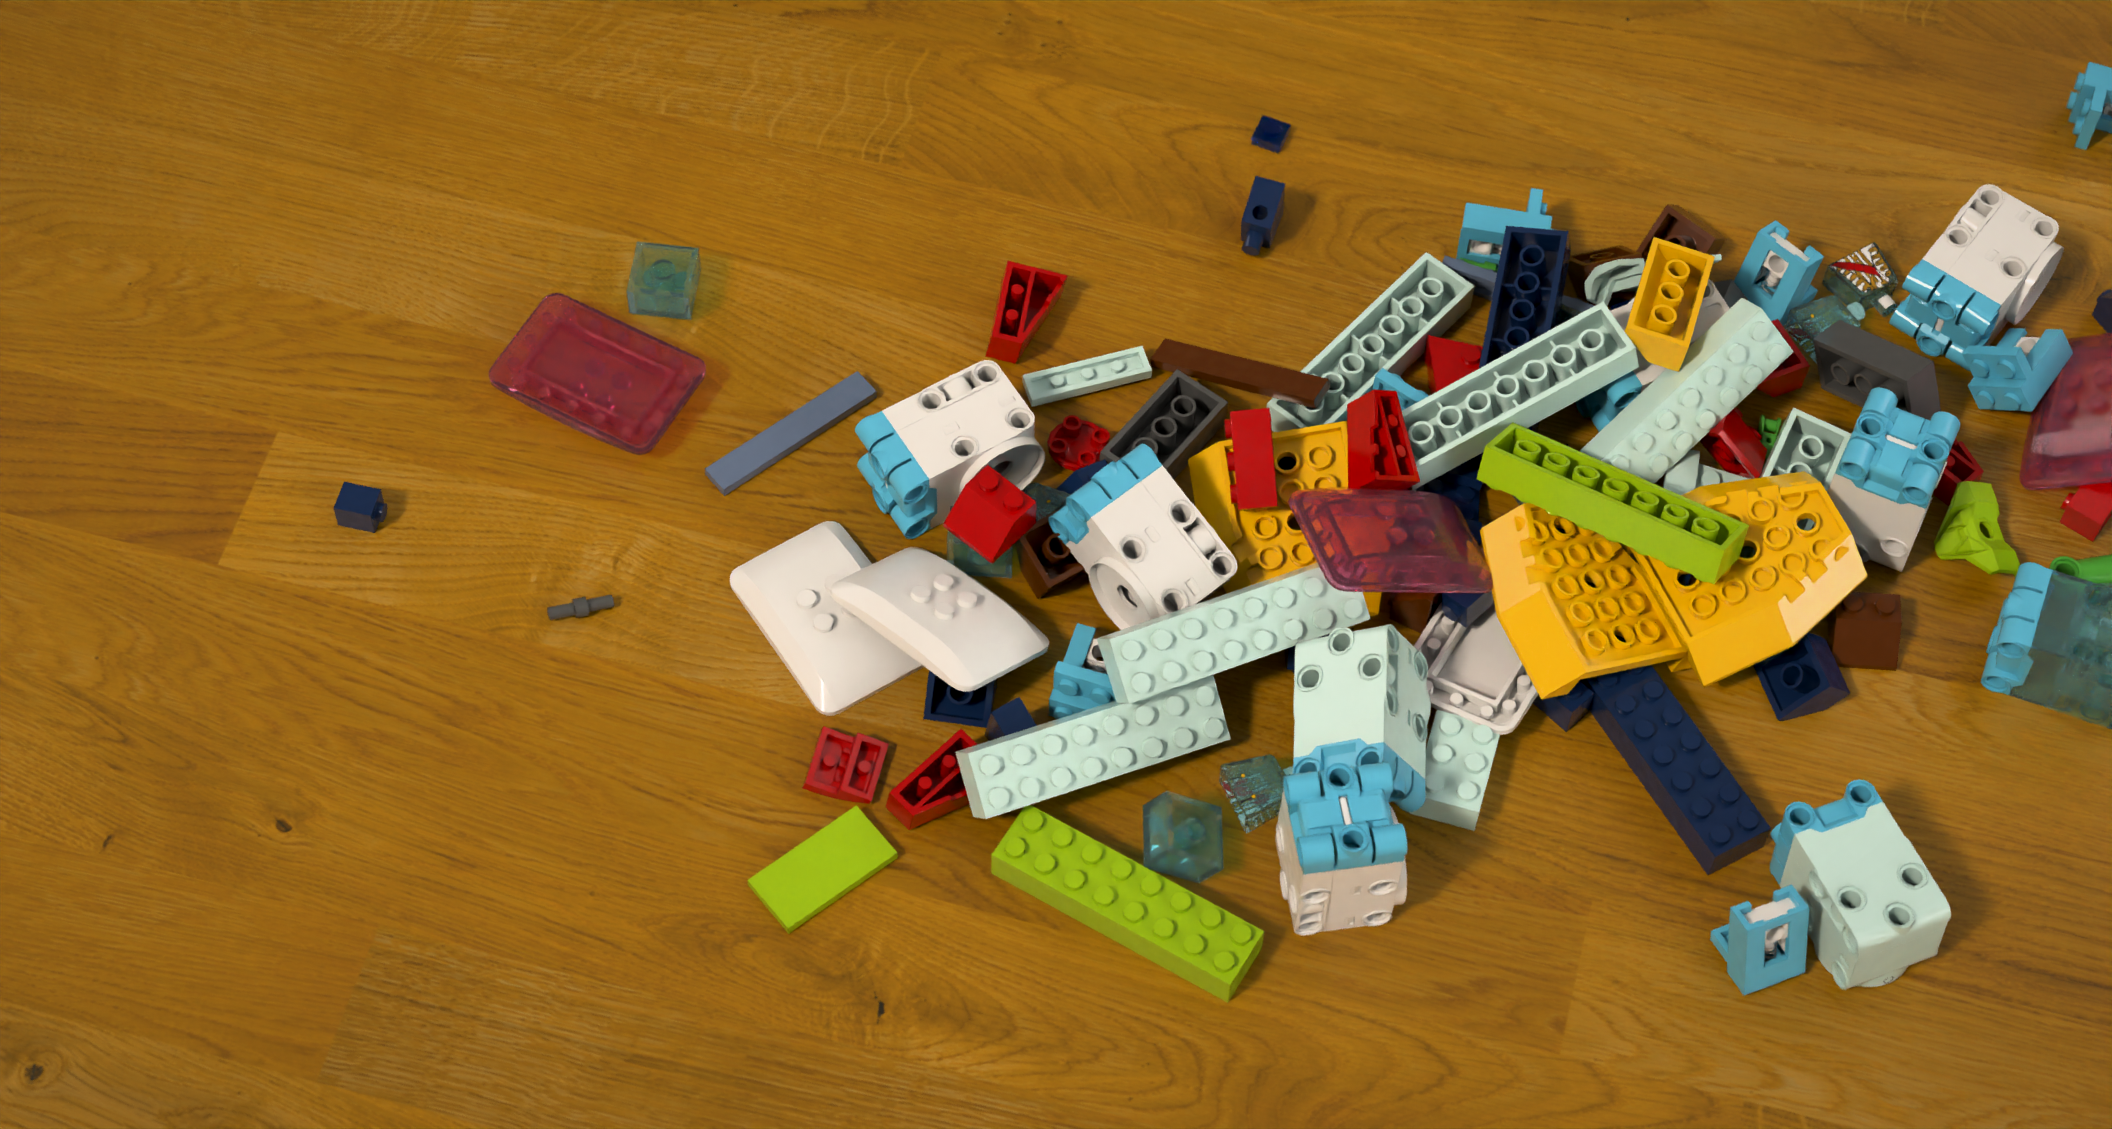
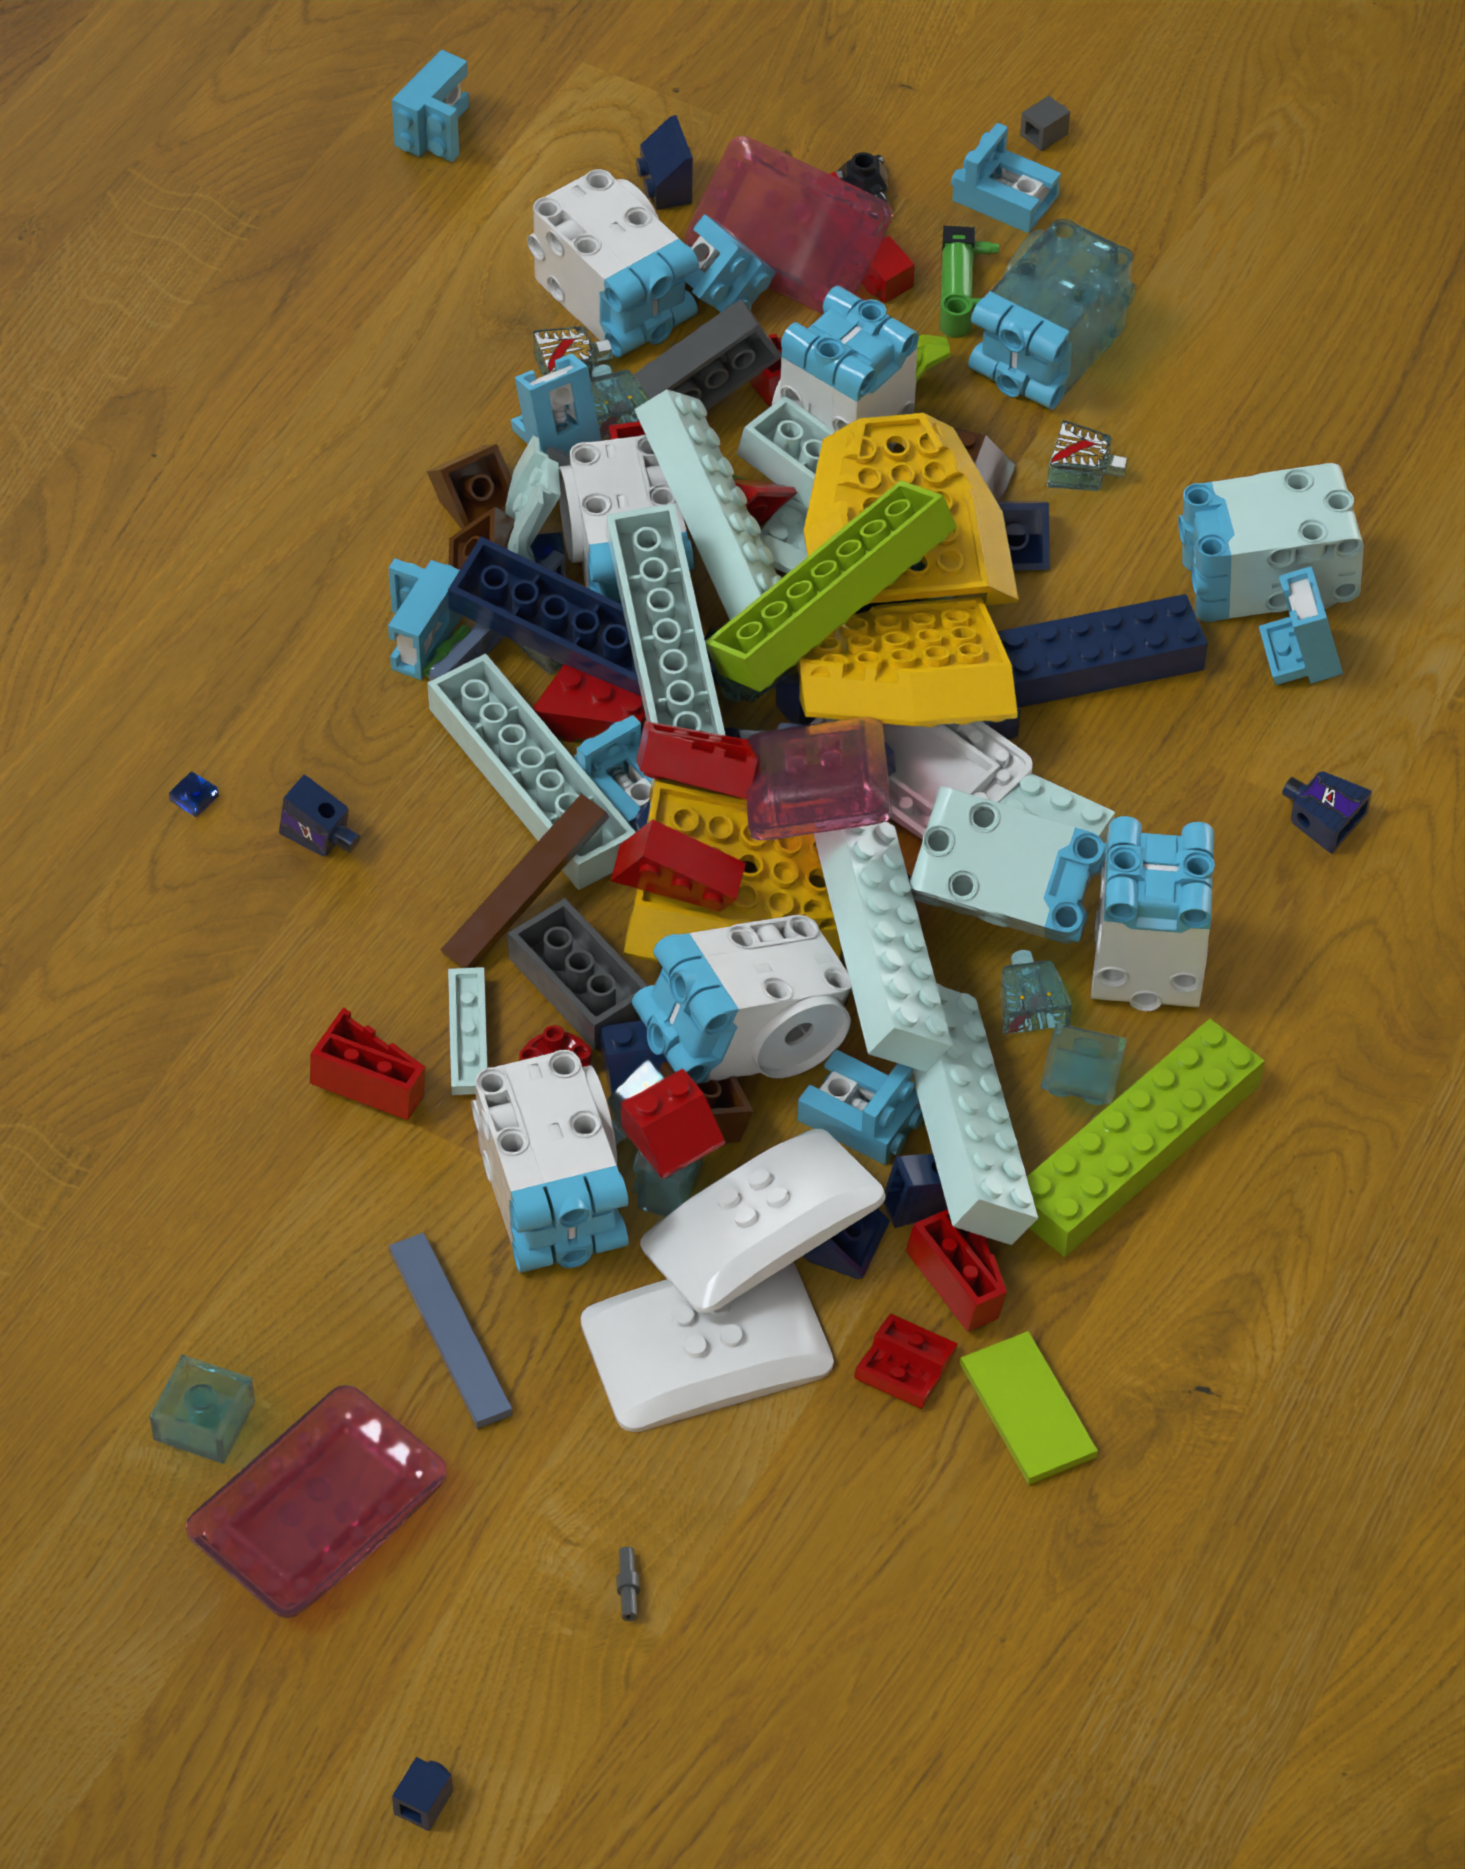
camera: 75 degrees left, 5 degrees down
(1564, 1004) = (1327, 808): none -> dark blue torso
(1668, 302) = (621, 462): yellow slope -> none
(1922, 718) = (1082, 459): none -> torso

